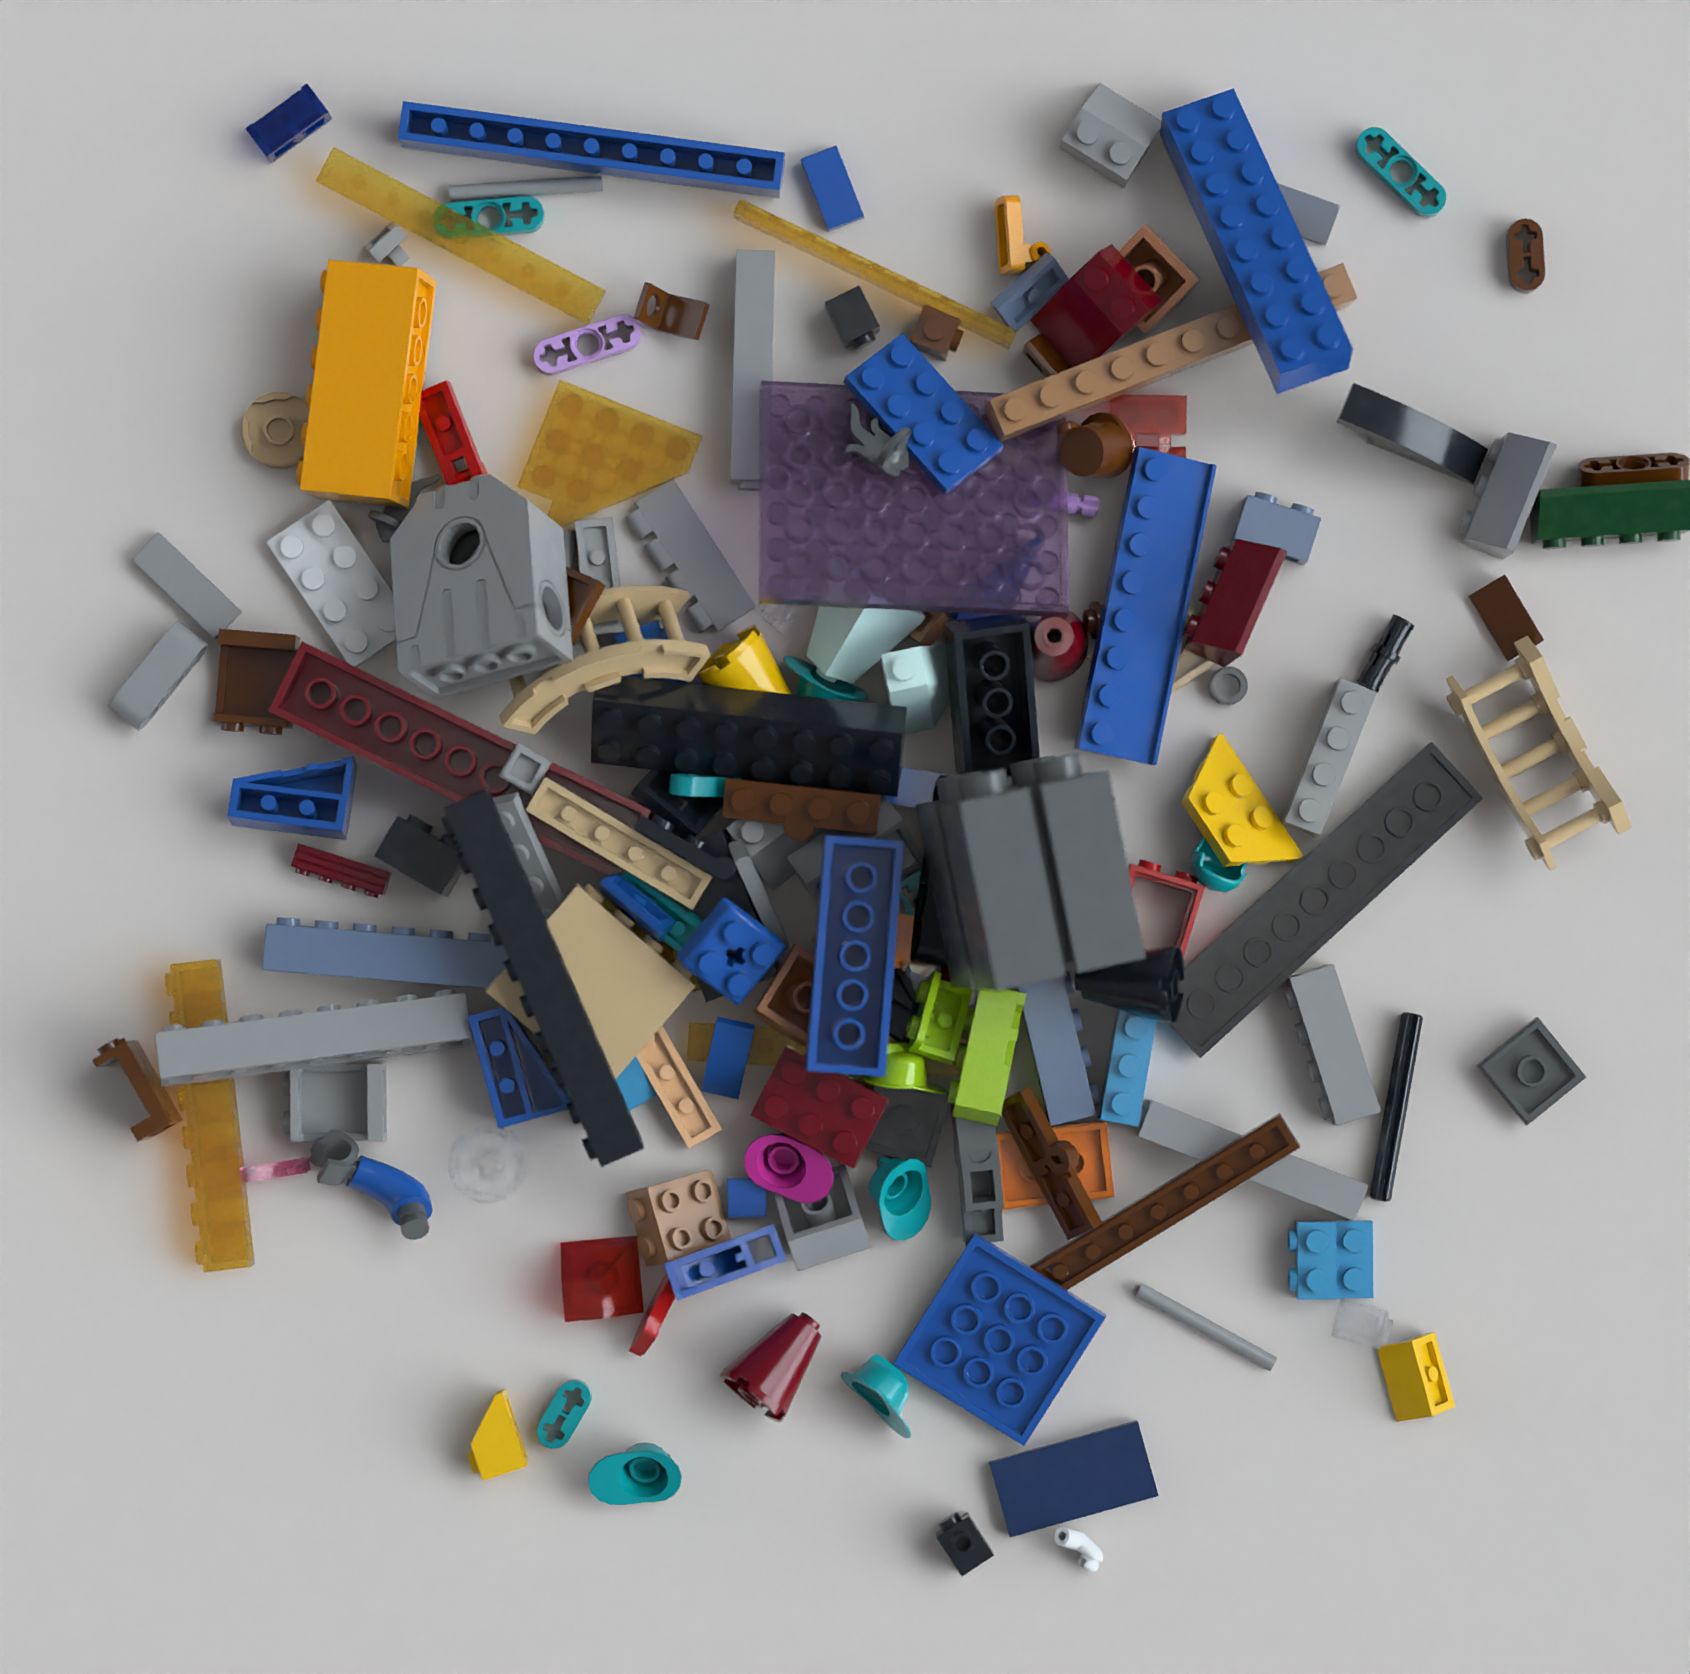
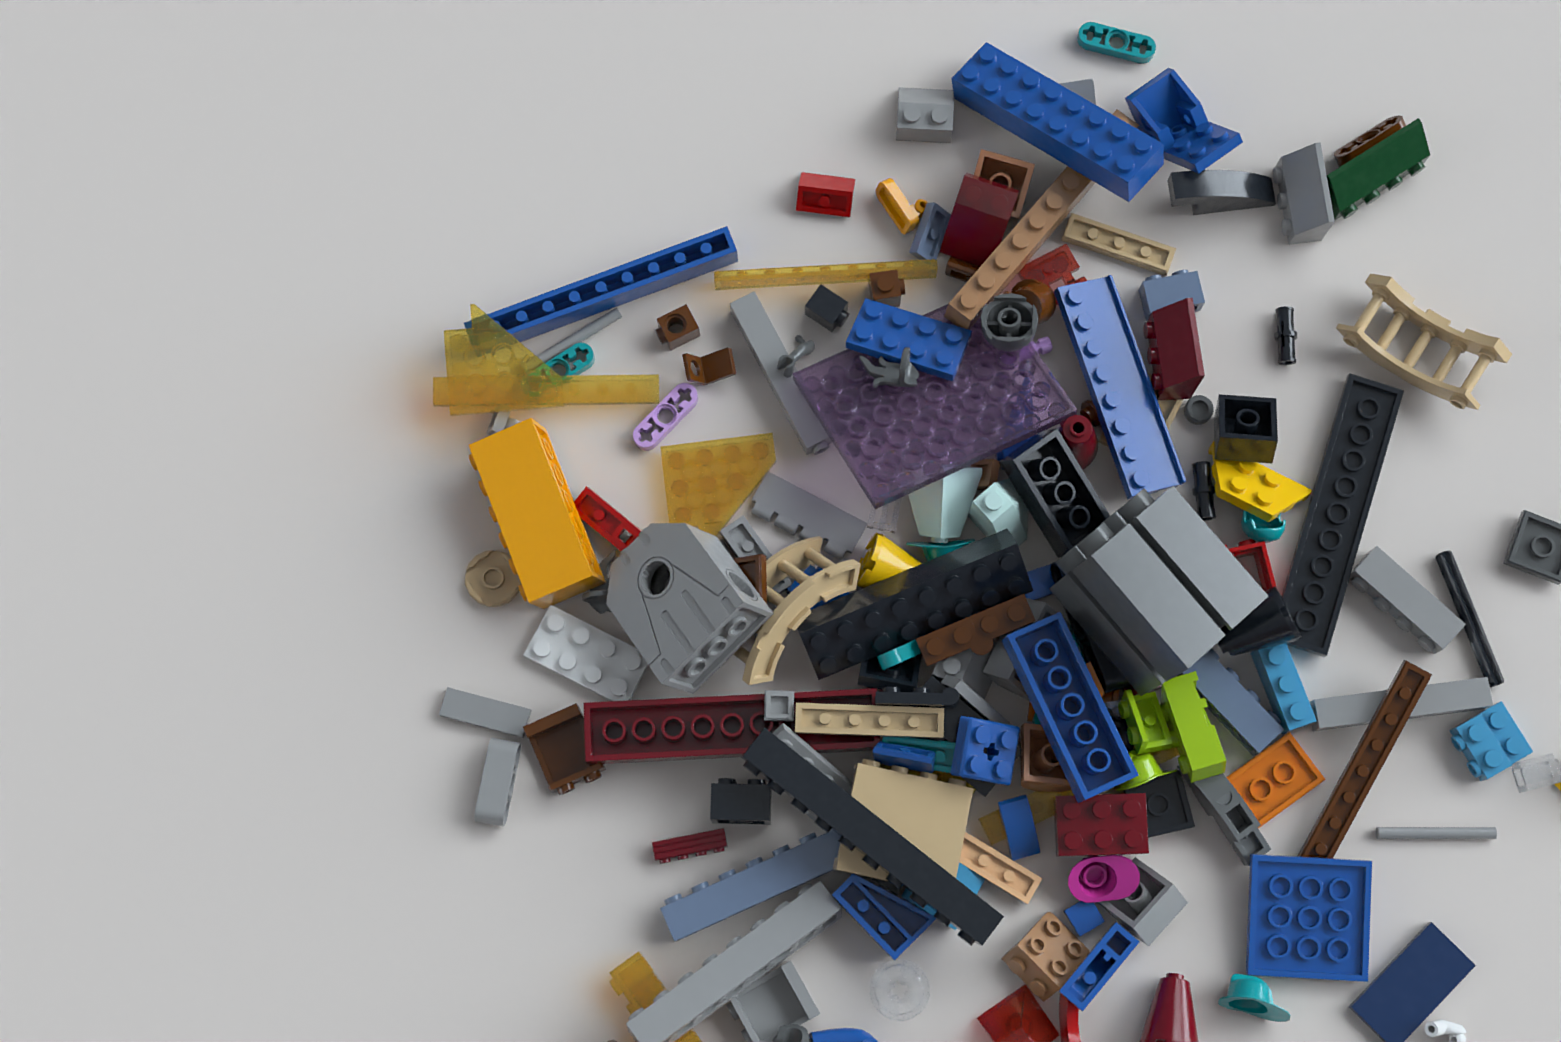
camera: 25 degrees left, 10 degrees down
(289, 123) = (396, 380): clear blue hinge -> none
(297, 800) = (635, 814): blue wedge -> none
(409, 183) = (495, 371): none -> clear yellow wing
(674, 253) = (678, 316): none -> reddish brown brick
(792, 354) = (788, 361): none -> dark grey piece
(832, 188) = (768, 238): blue tile -> none
(902, 1196) = (1186, 855): teal piece -> none
(932, 171) = (825, 194): none -> red panel
(1049, 462) = (1009, 322): none -> dark grey cylinder
(1050, 1163) = (1275, 779): reddish brown hinge -> none
(1174, 786) = (1203, 490): none -> black pin
(1252, 429) = (1118, 244): none -> tan tile
(1262, 741) = (1245, 428): none -> black brick
(1328, 757) = (1294, 425): light grey brick -> none
(1406, 324) = (1176, 118): none -> blue bracket
(1504, 616) = (1346, 272): reddish brown slope -> none
(1516, 257) = (1225, 49): reddish brown beam -> none

